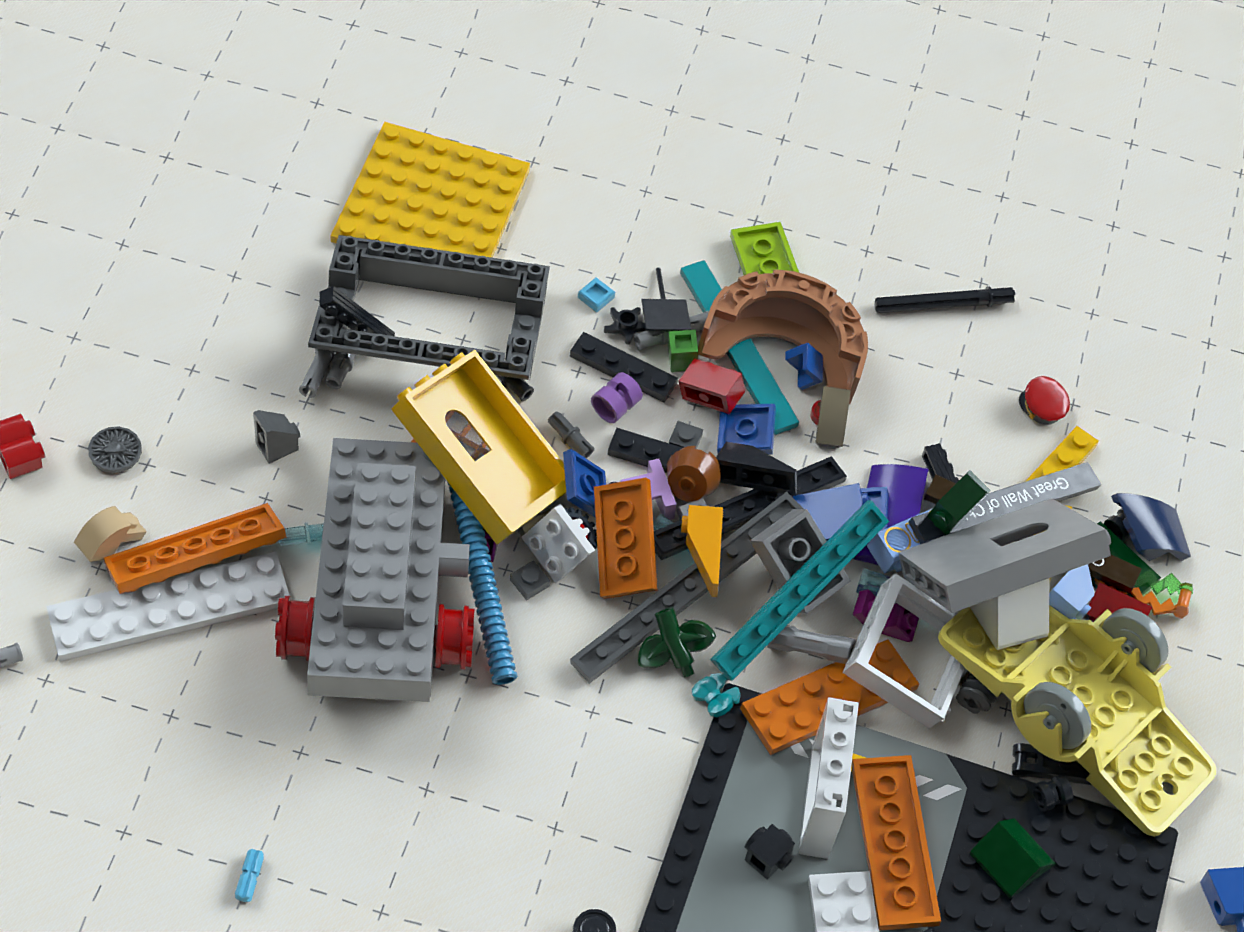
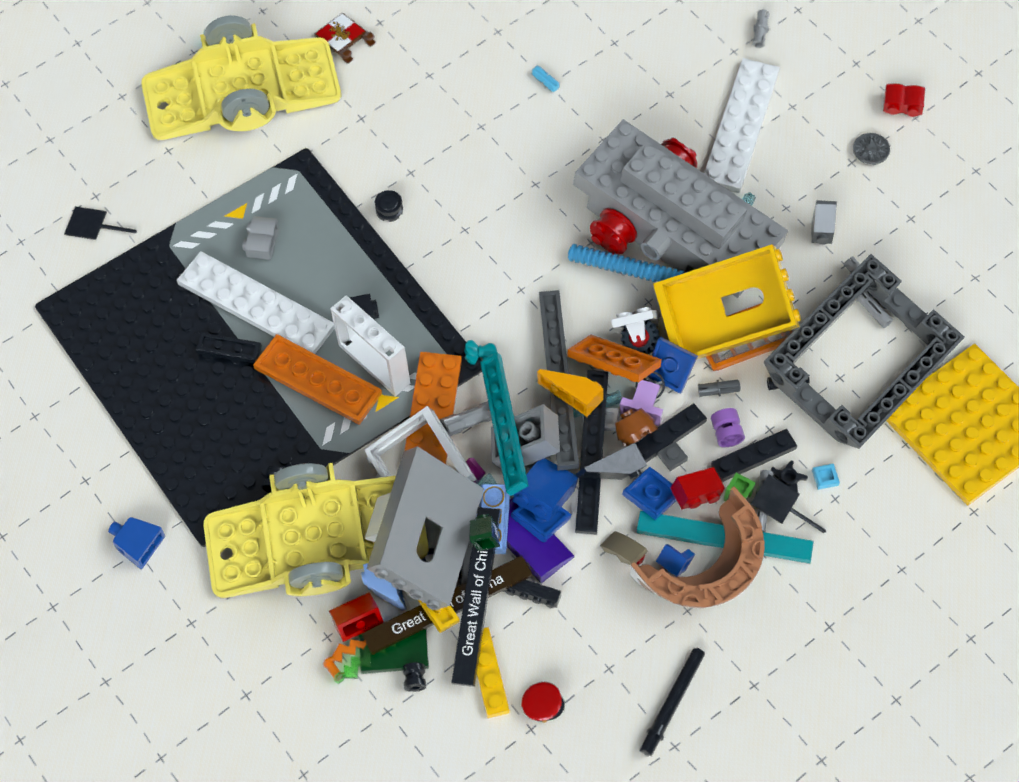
camera: 135 degrees right, 5 degrees up
(106, 531) = (808, 113): tan brick -> none
(194, 548) = (768, 147): orange plate -> none
(351, 313) = (876, 300): black piece -> none
(529, 580) = (630, 304): dark grey plate -> none
(675, 642) = (530, 343): dark green plant -> none
(763, 248) = (786, 602): lime plate -> none
(1011, 857) = (258, 435): dark green slope -> none
(1152, 526) = (395, 688): dark blue slope -> none

